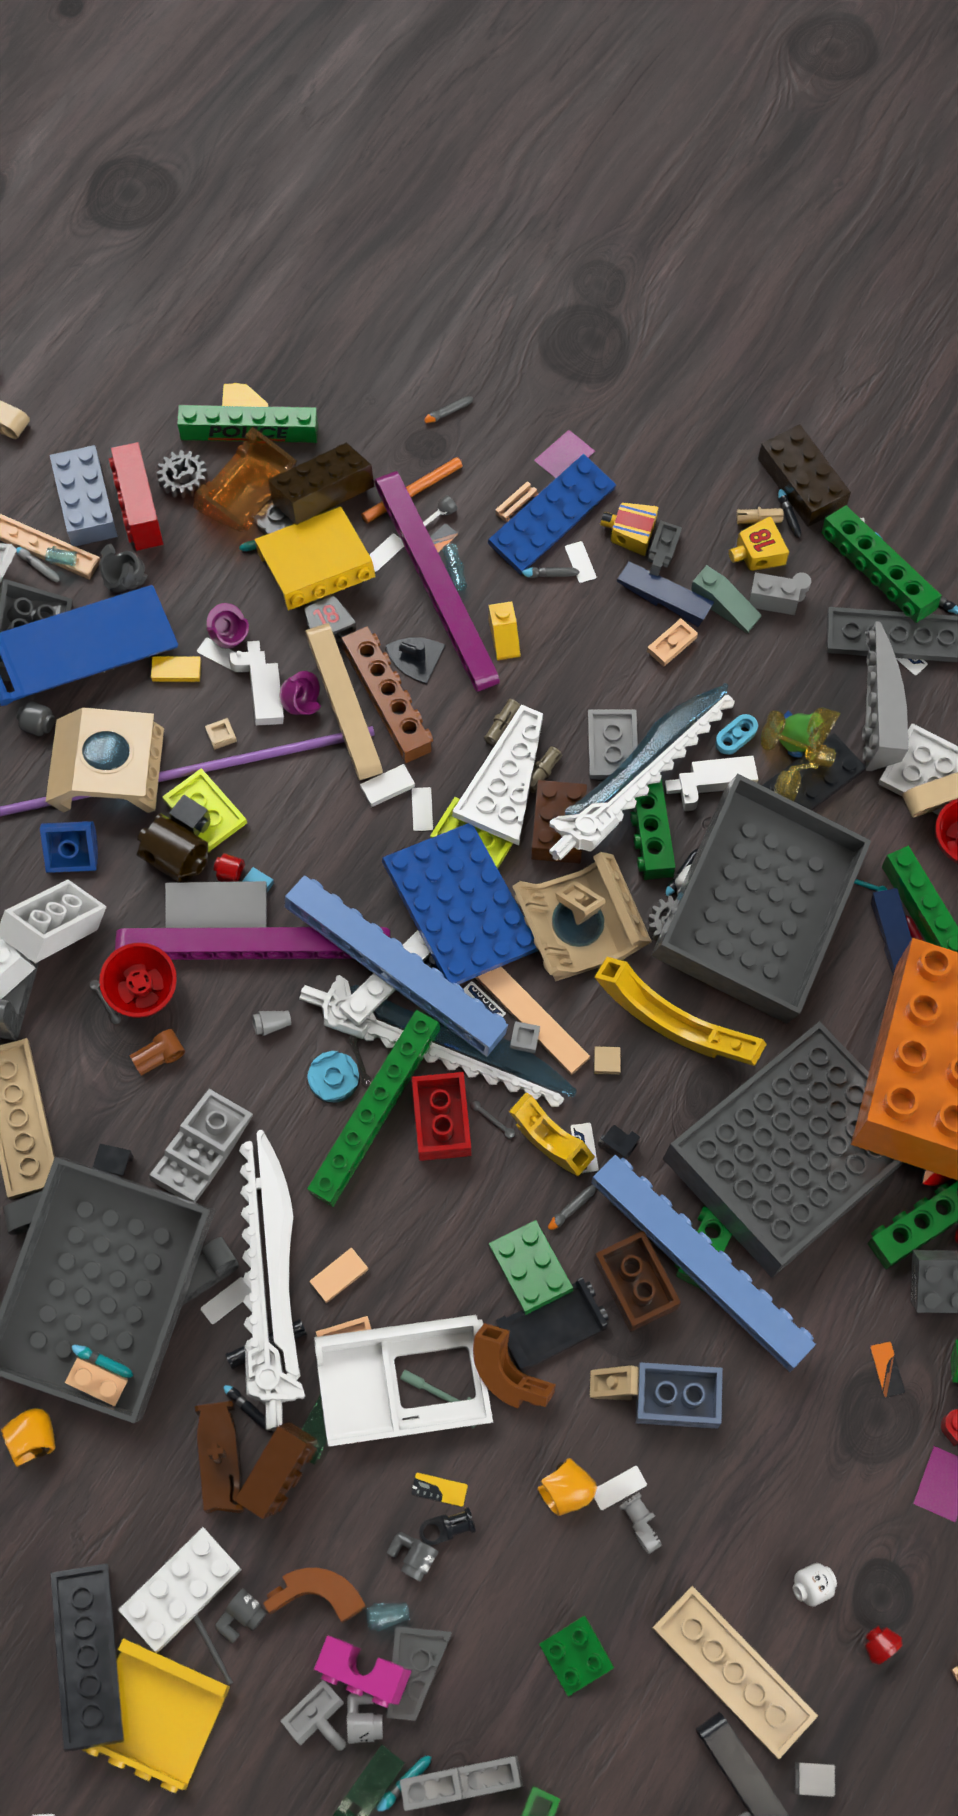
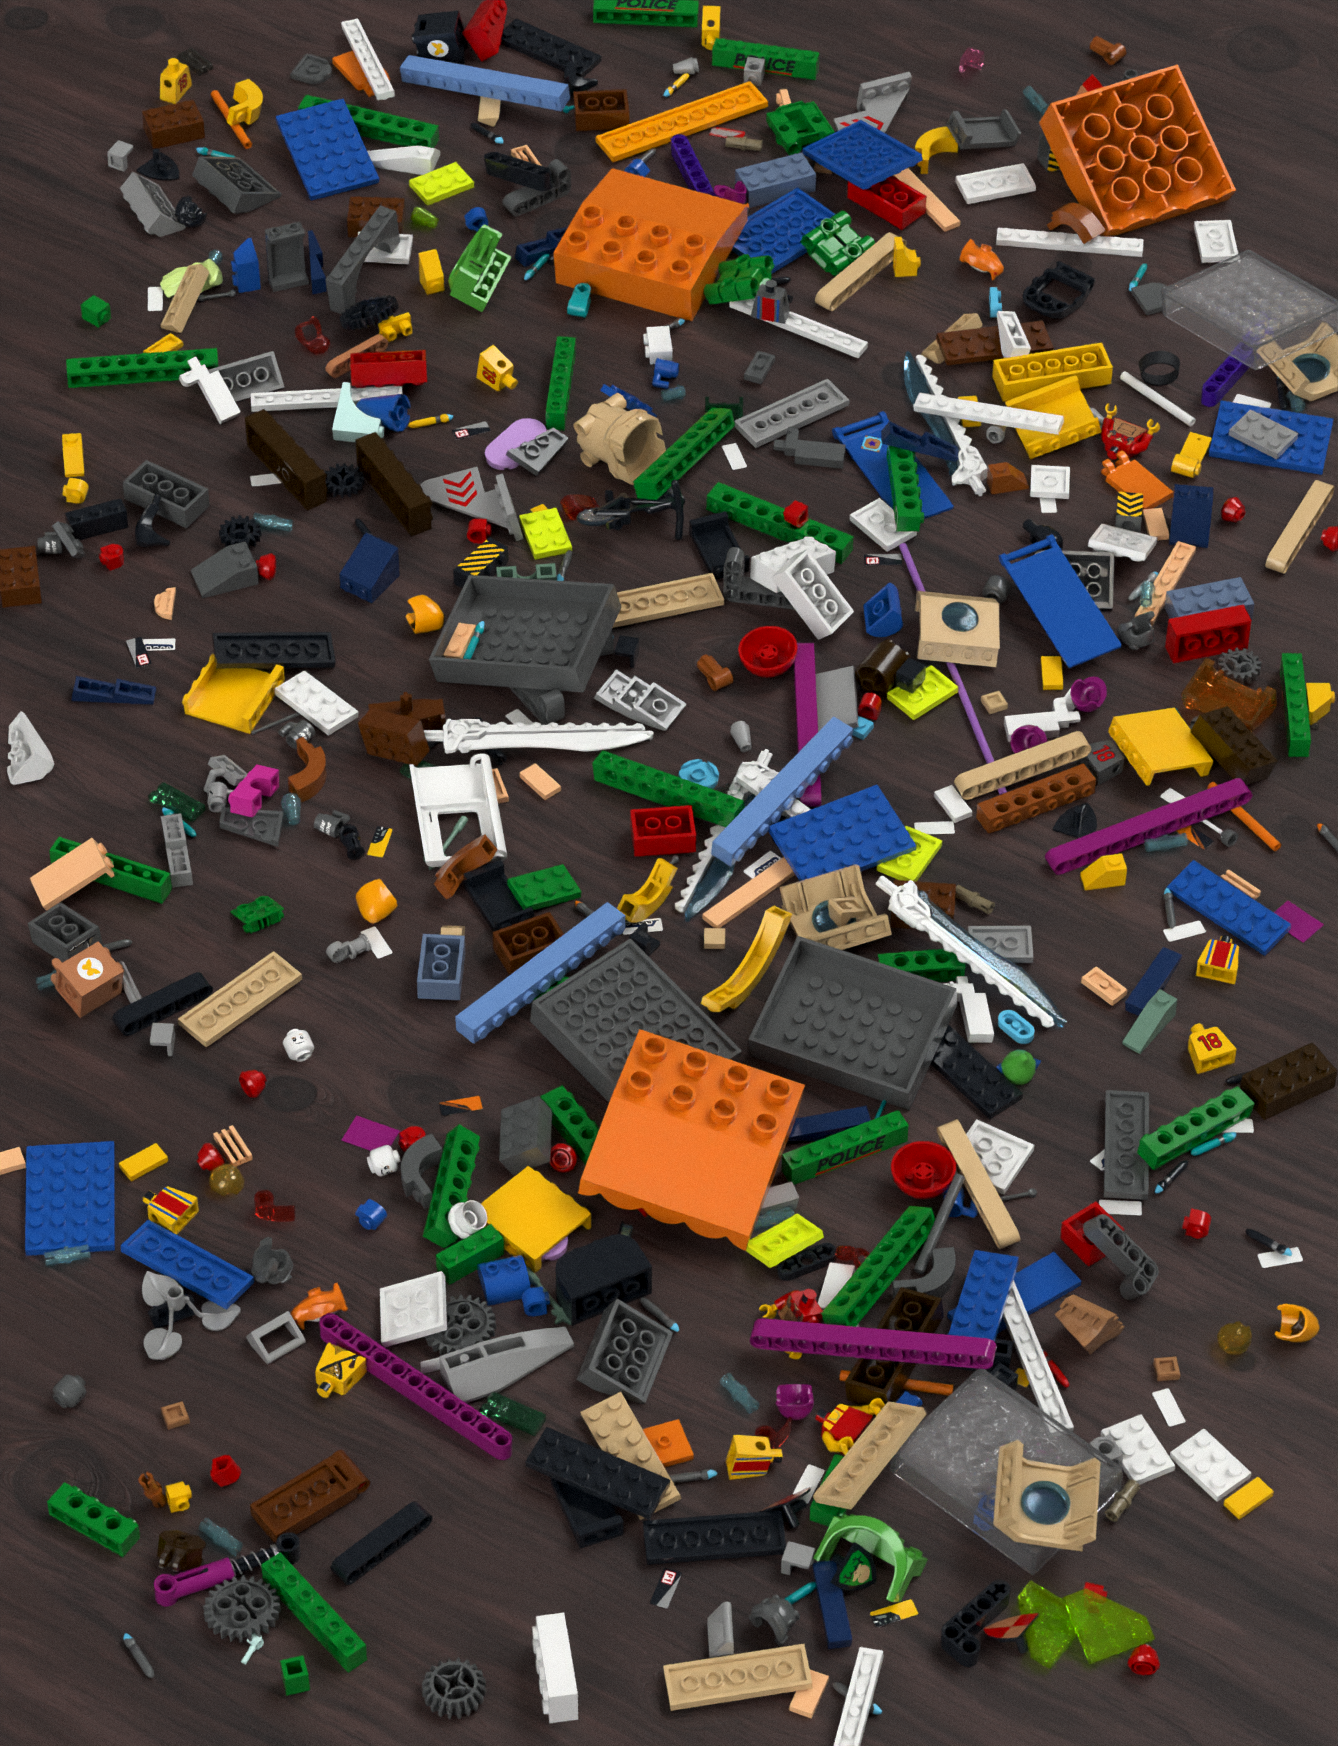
camera: 90 degrees right, 20 degrees down
(501, 722) = (1016, 874): dark tan pin -> none
(502, 785) = (947, 863): white wing -> none
(525, 1037) = (730, 882): light grey tile -> none
(663, 546) = (1199, 978): dark grey hinge -> none
(756, 515) = (1242, 1050): tan axle -> none
(779, 593) = (1159, 1058): light grey hinge -> none
(817, 754) = (993, 1065): clear yellow plant -> none
(886, 705) = (1050, 1114): light grey wedge -> none

